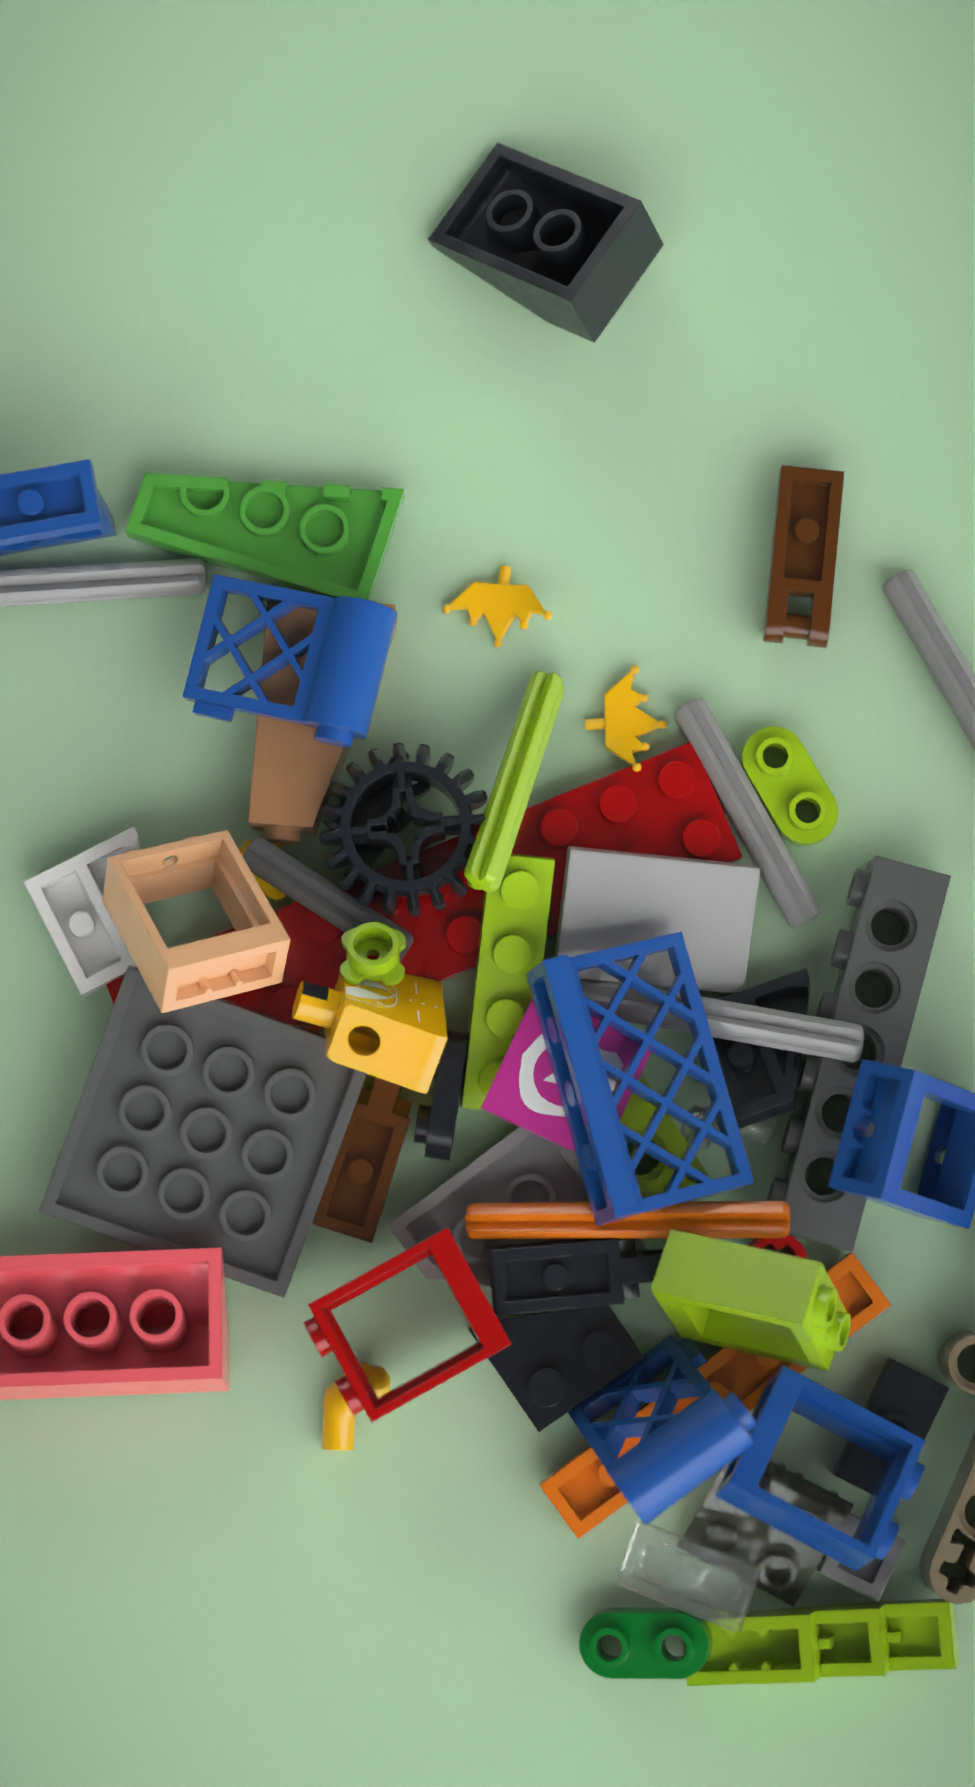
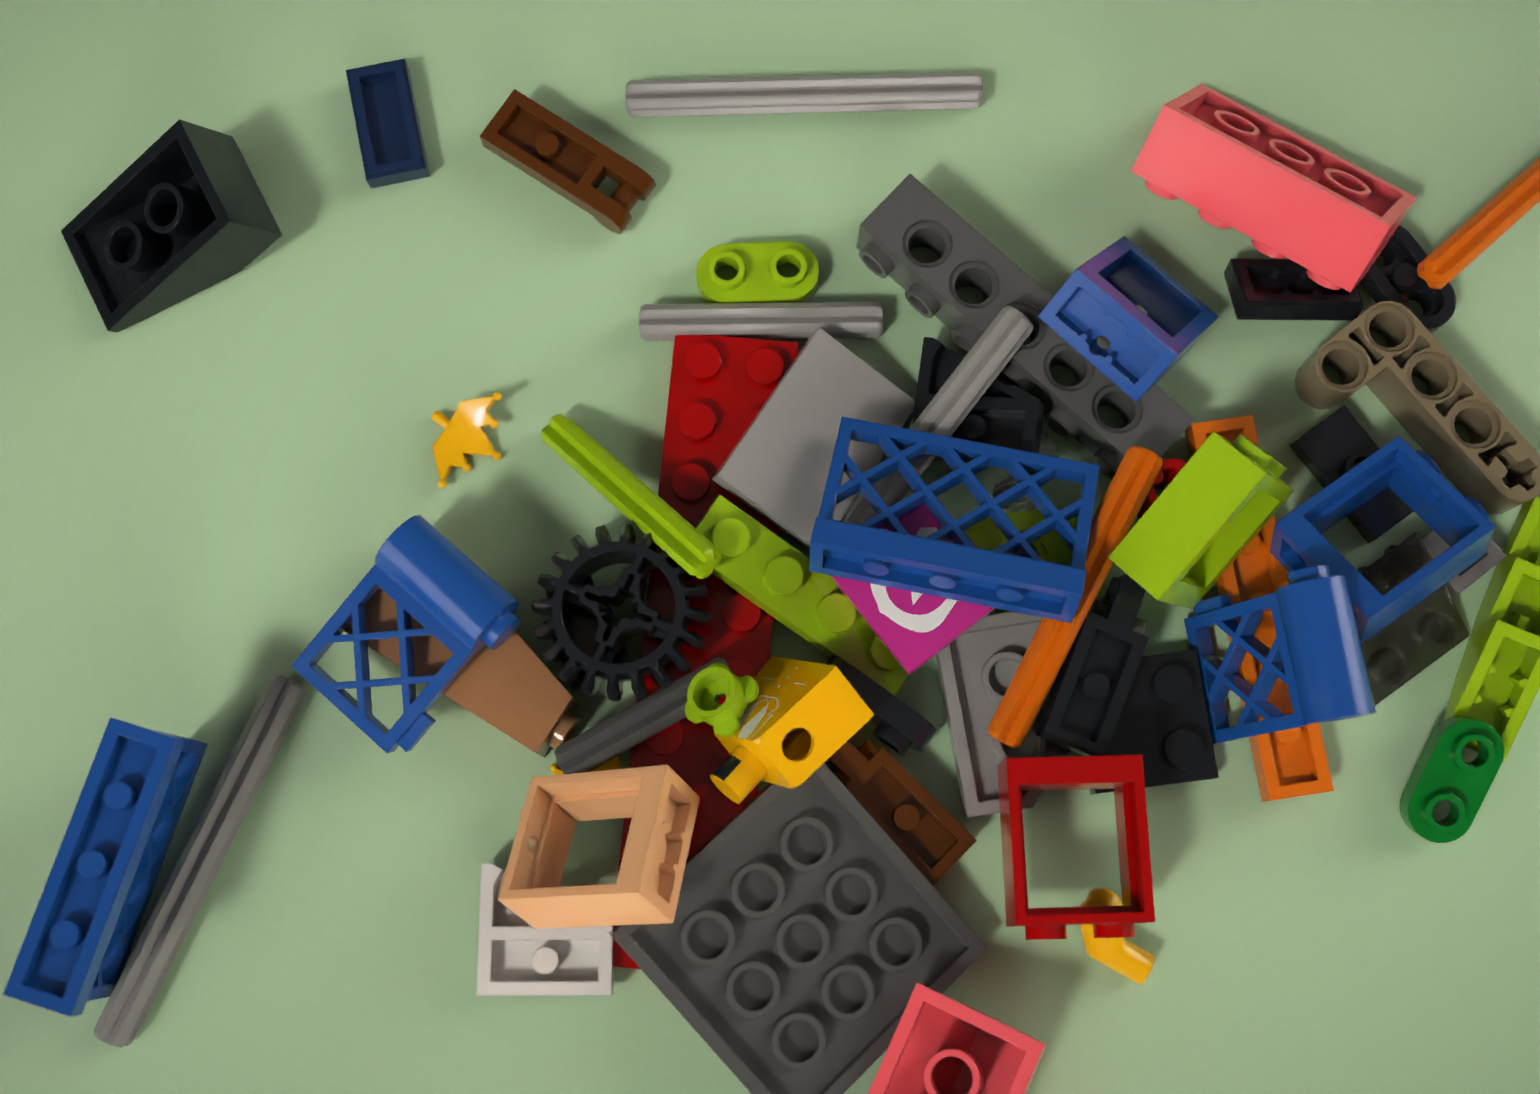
camera: 65 degrees left, 5 degrees down
(282, 533) = (279, 601): bright green wing -> none
(624, 721) = (626, 383): yellow piece -> none
(688, 1575) = (1412, 709): clear plate -> none
(755, 372) = (387, 123): none -> dark blue tile

